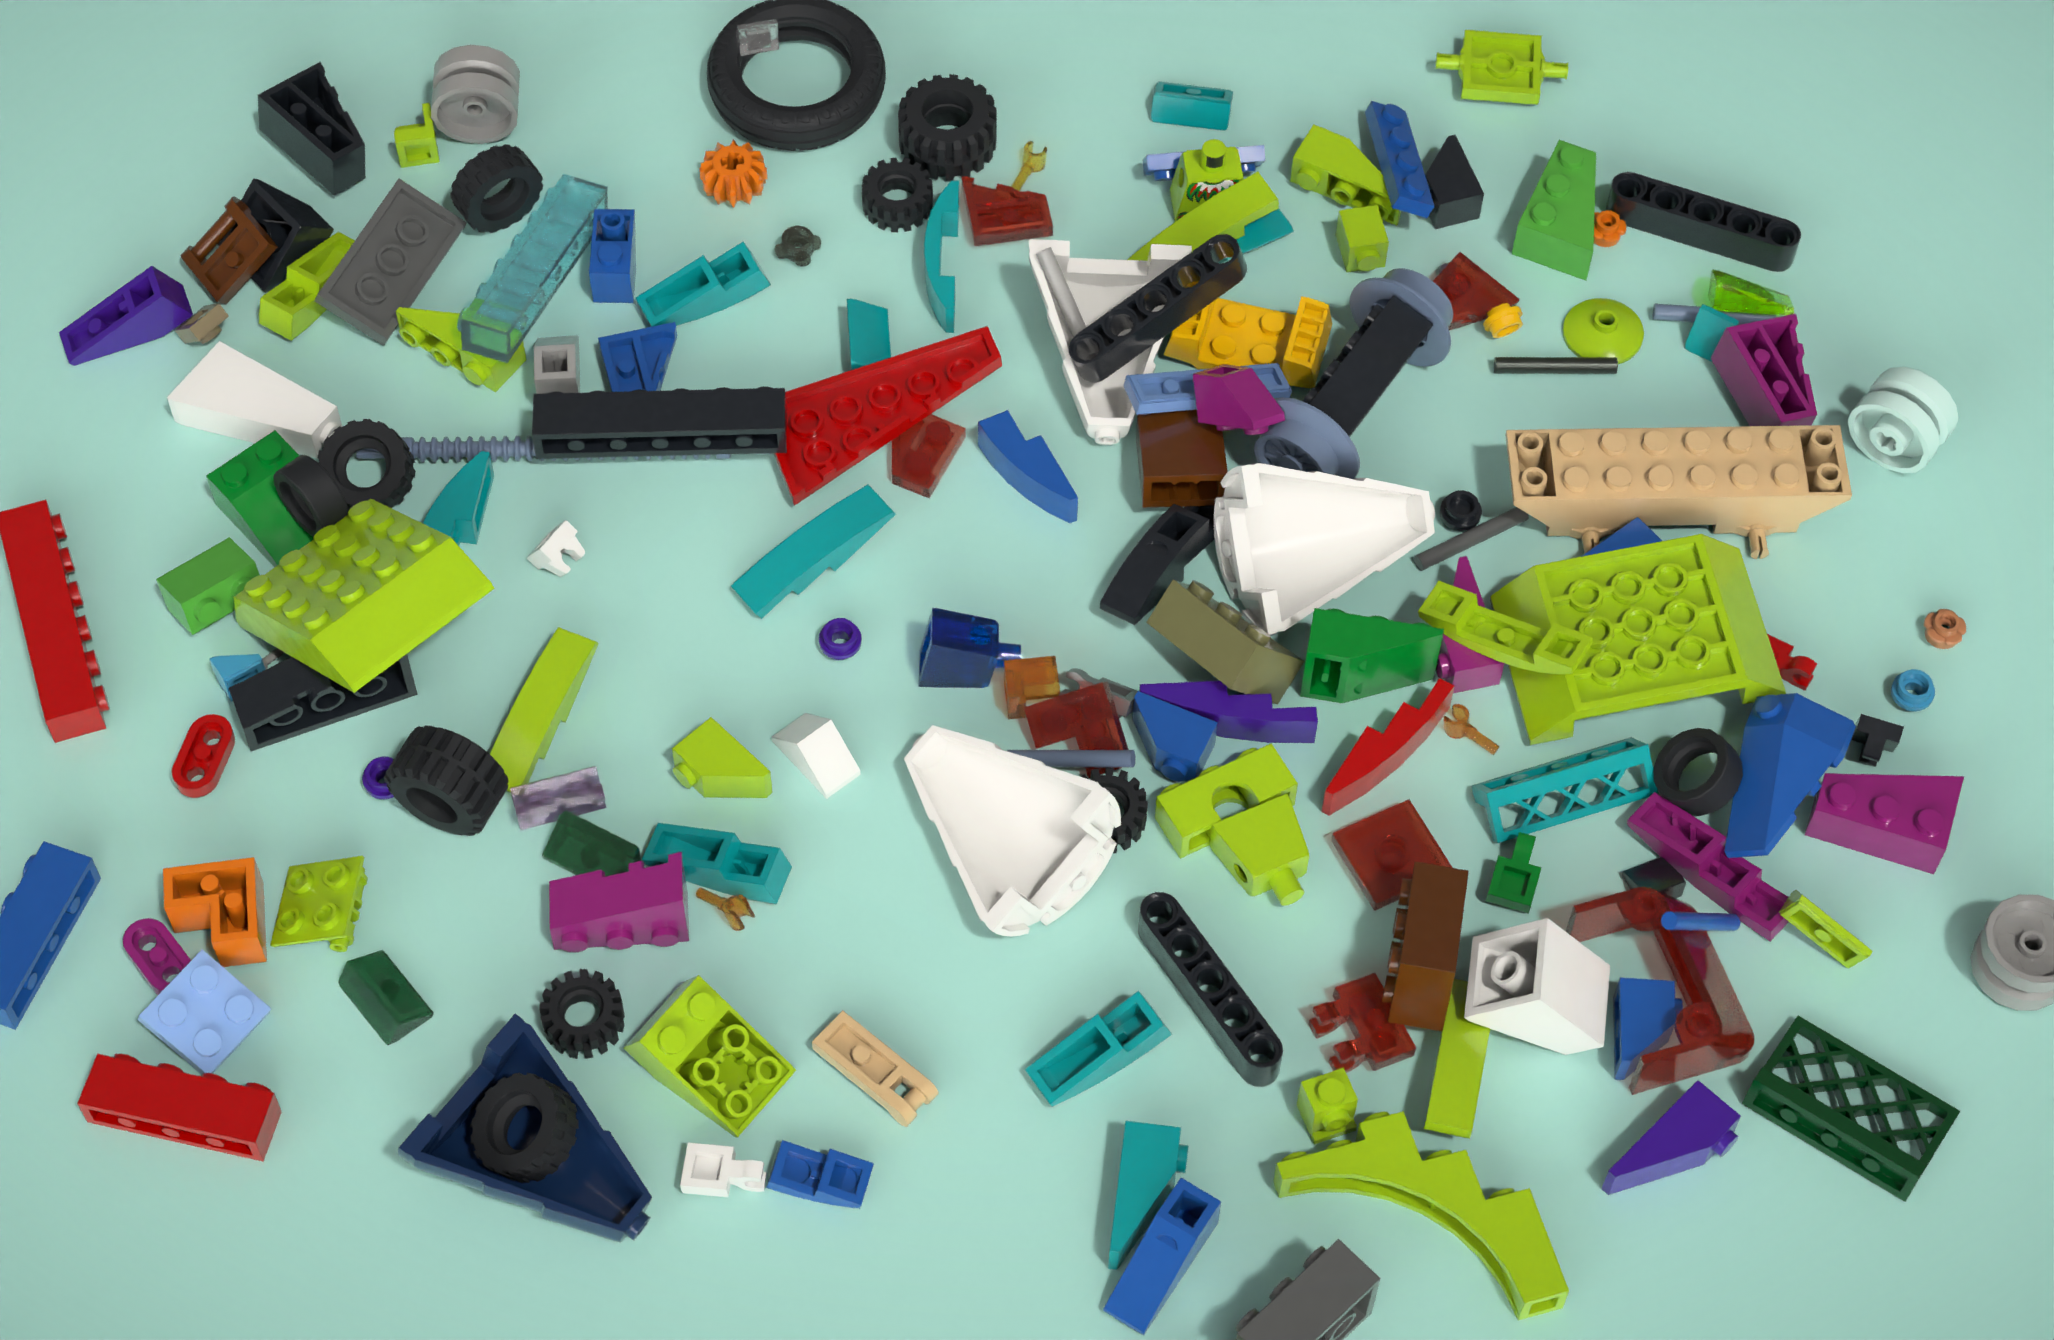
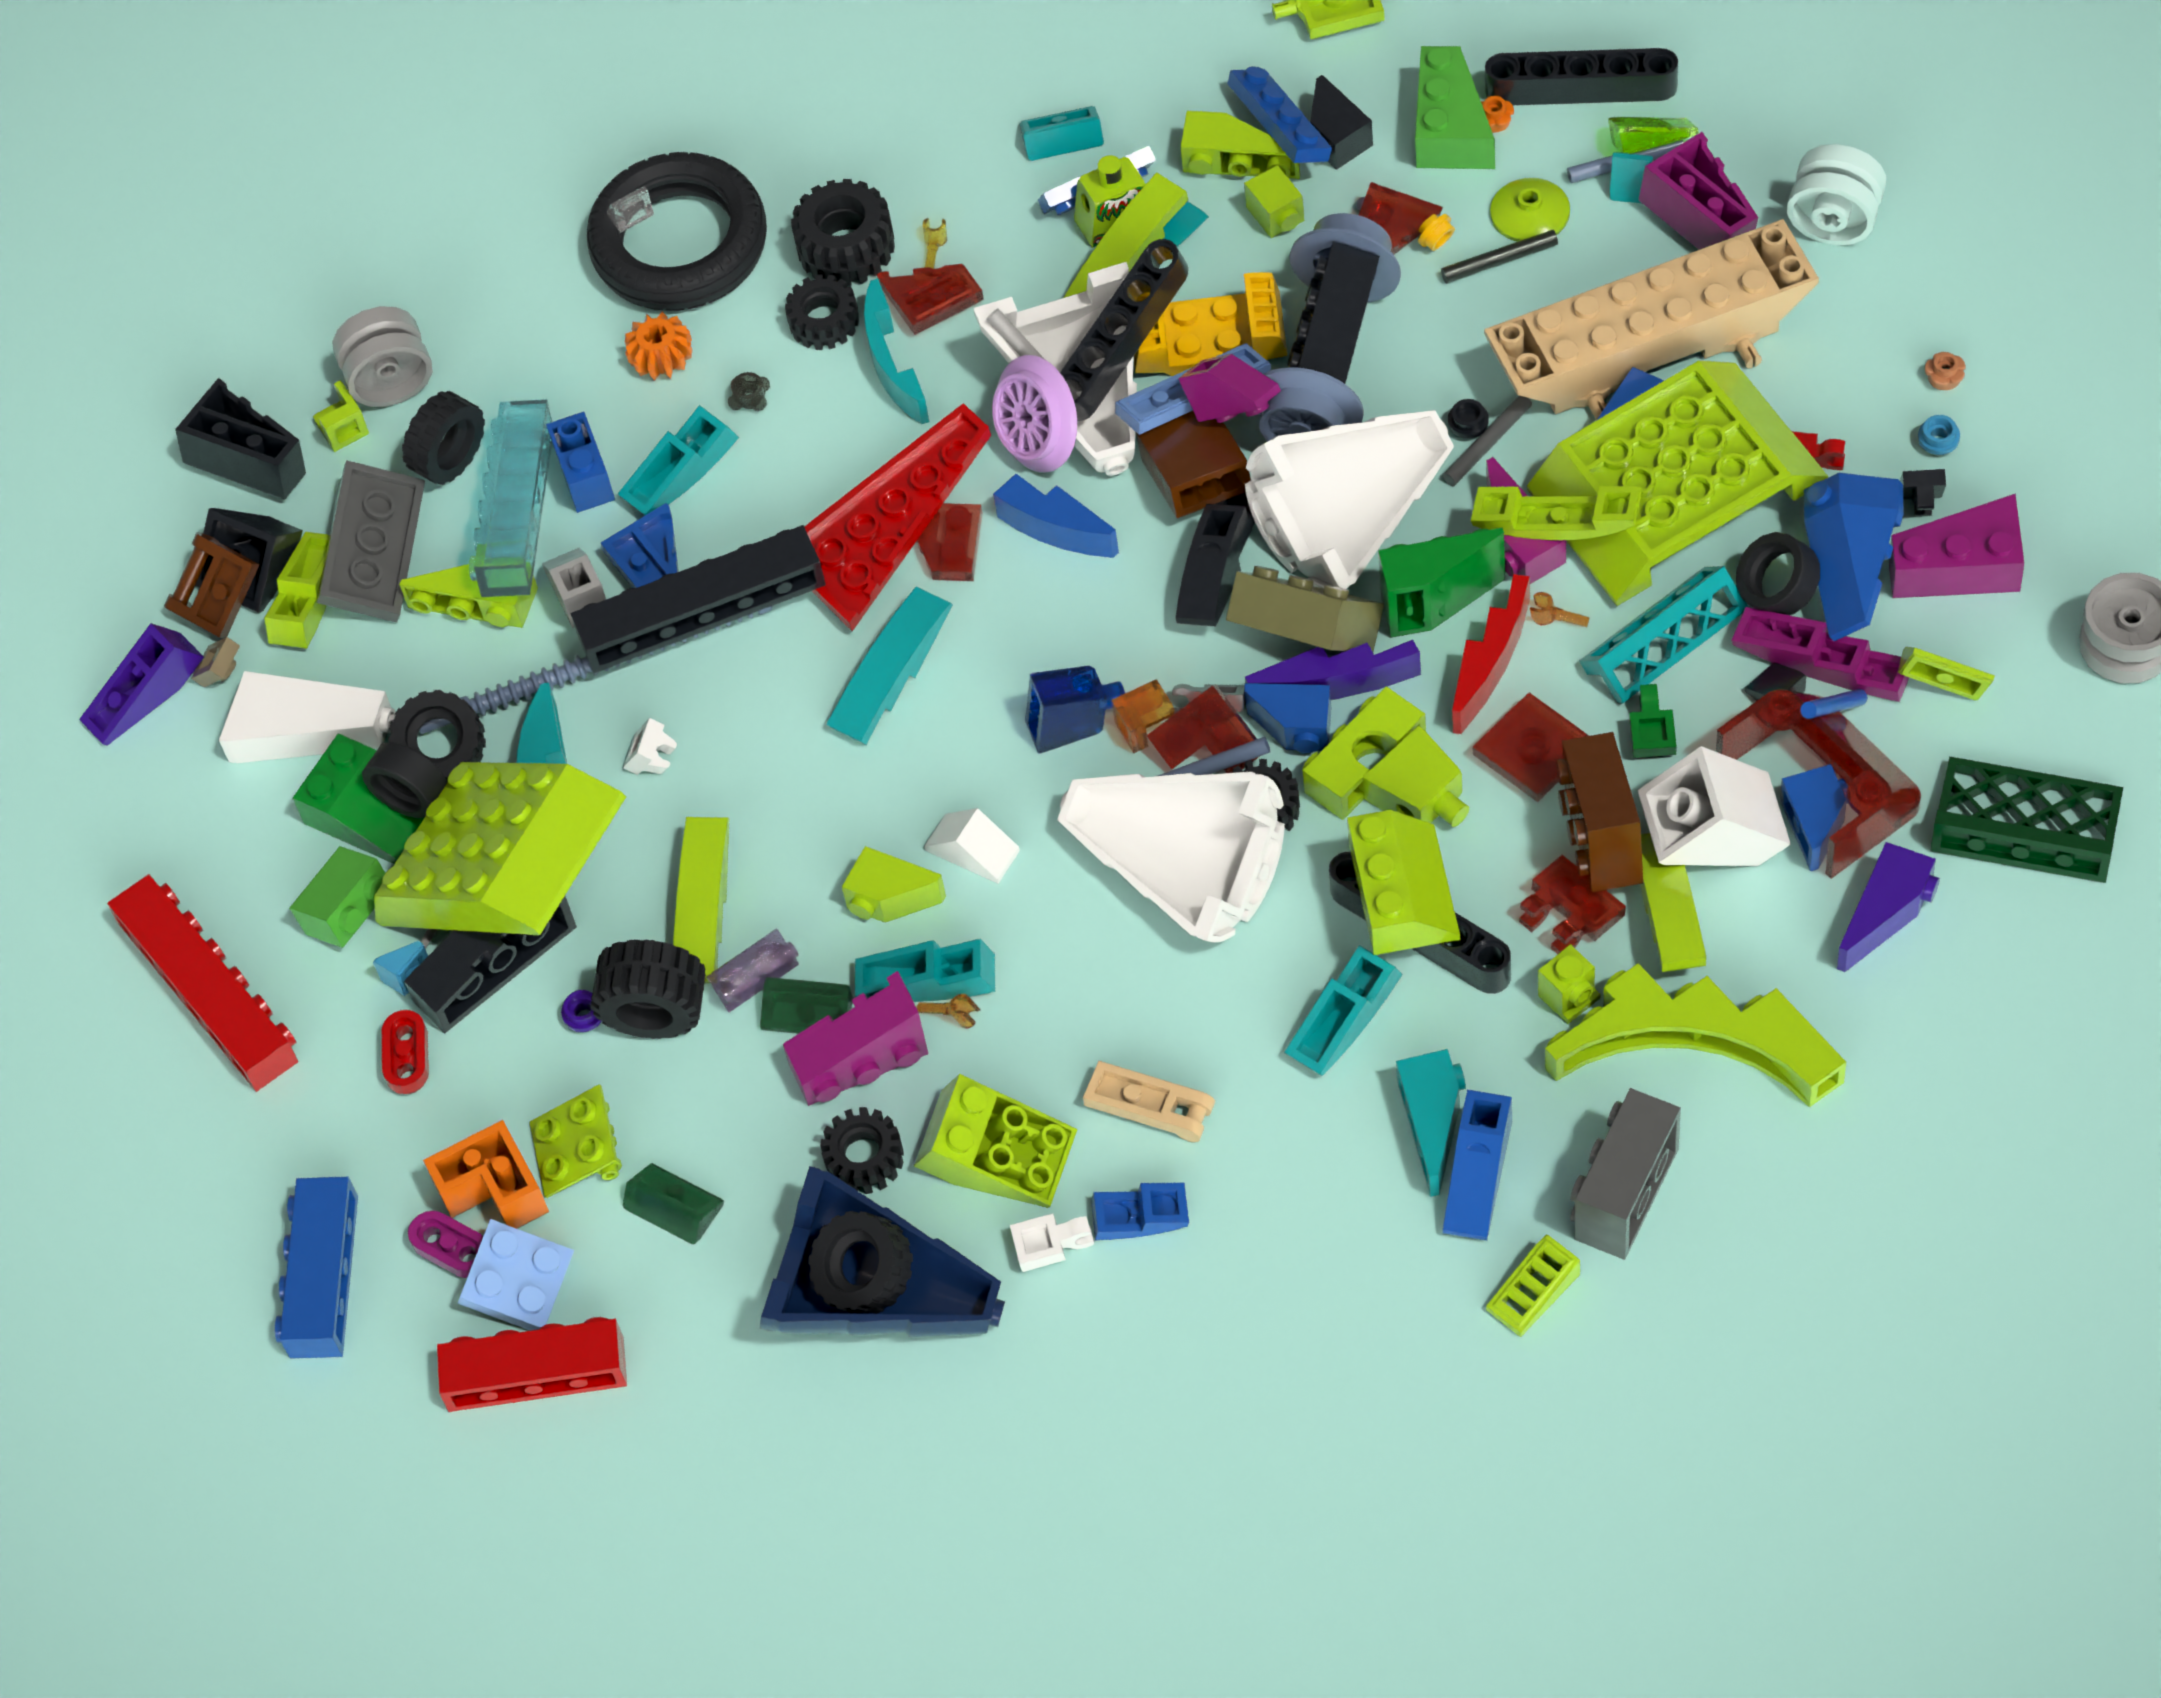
camera: 10 degrees left, 0 degrees up
(840, 629) = (945, 727): dark purple plate -> none
(867, 333) = (850, 451): teal slope -> none
(1047, 359) = (1035, 388): none -> lavender piece
(1203, 943) = (1401, 881): none -> lime slope

